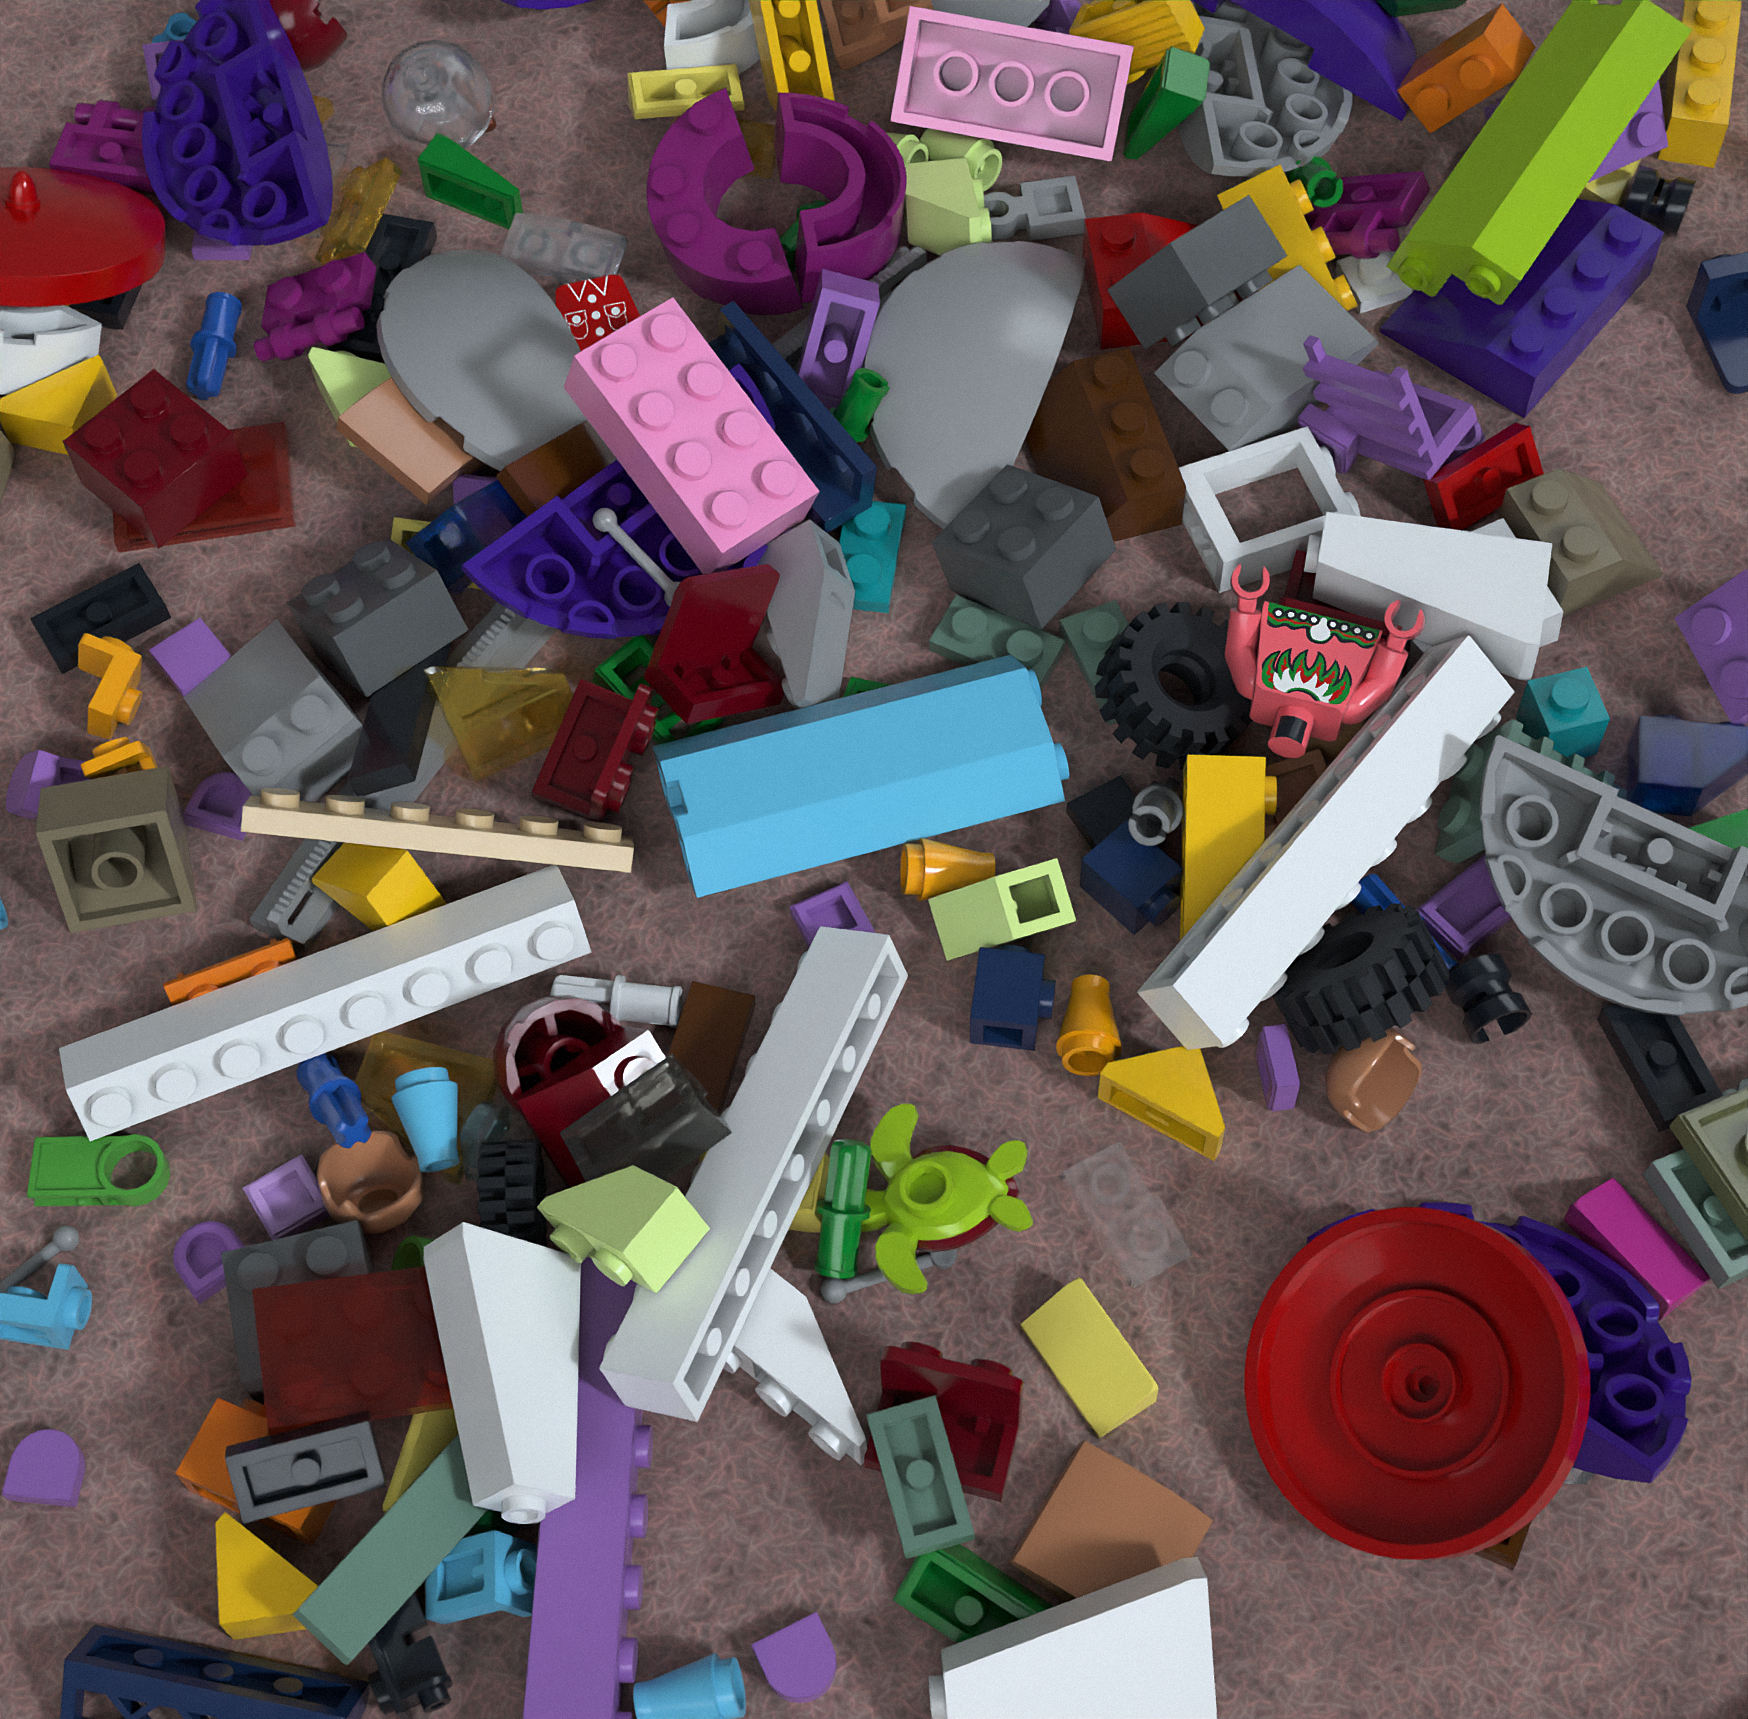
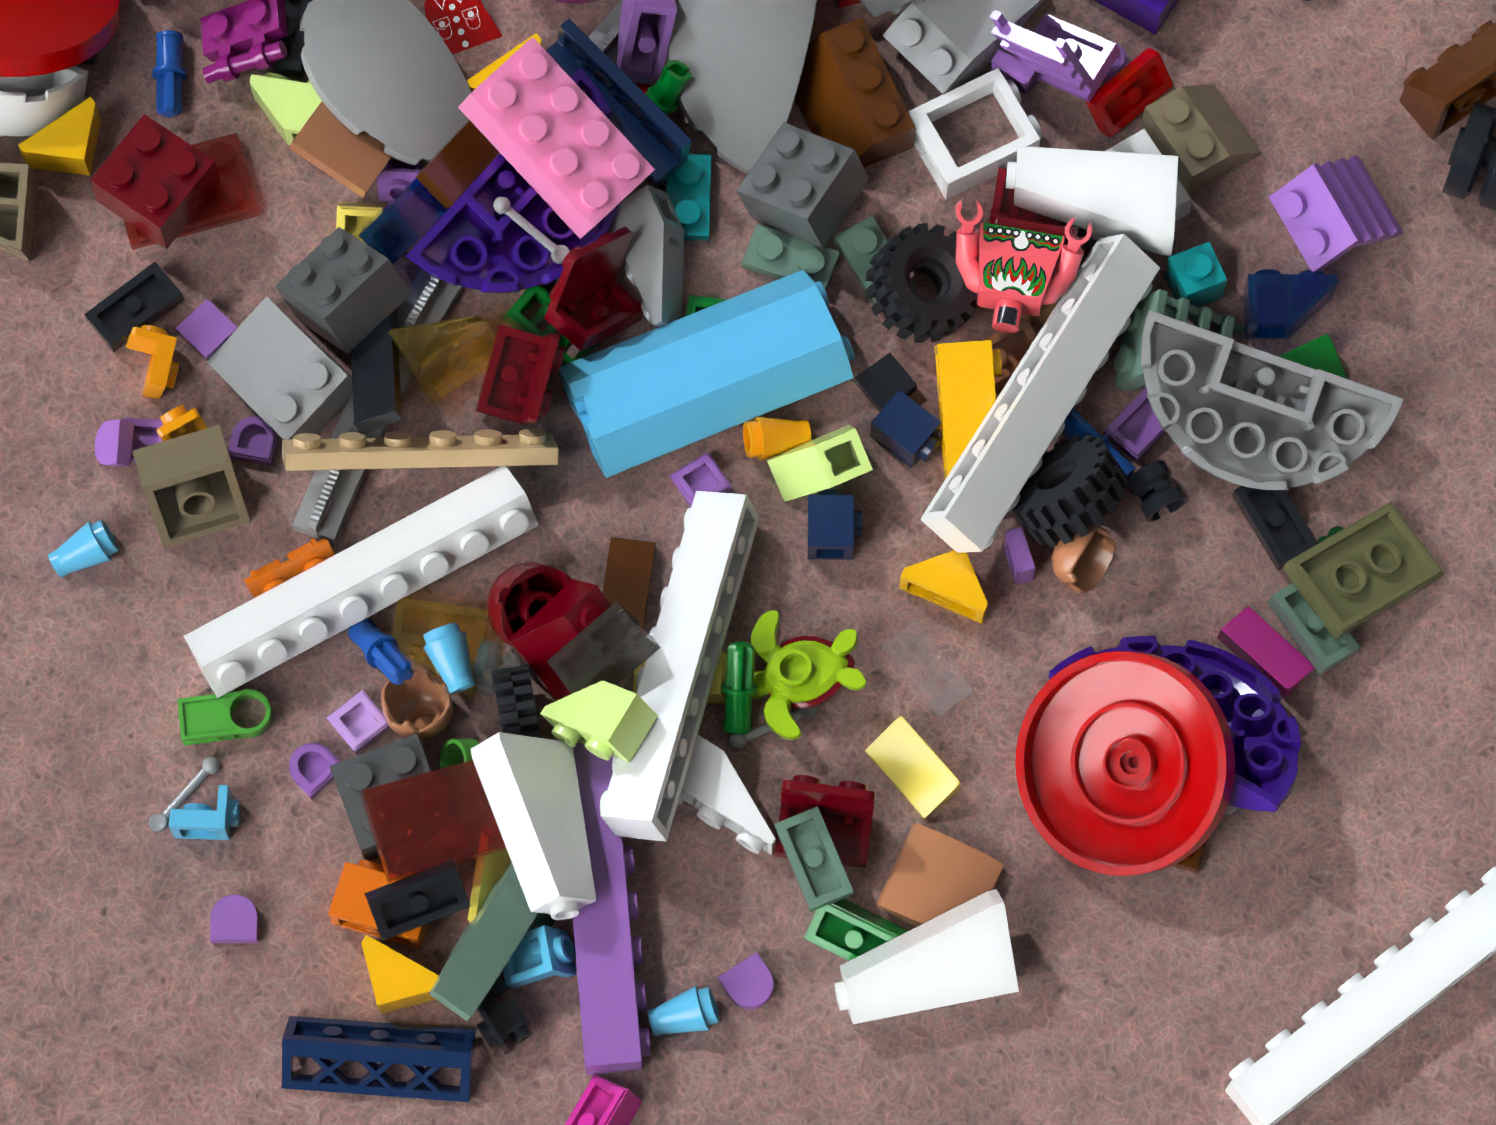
camera: 10 degrees left, 10 degrees up
(377, 884) = (381, 494): yellow slope -> none
(625, 999) = (563, 555): white axle -> none
(1089, 1028) = (888, 541): light orange cone -> none
(1156, 812) = (919, 381): dark grey axle -> none

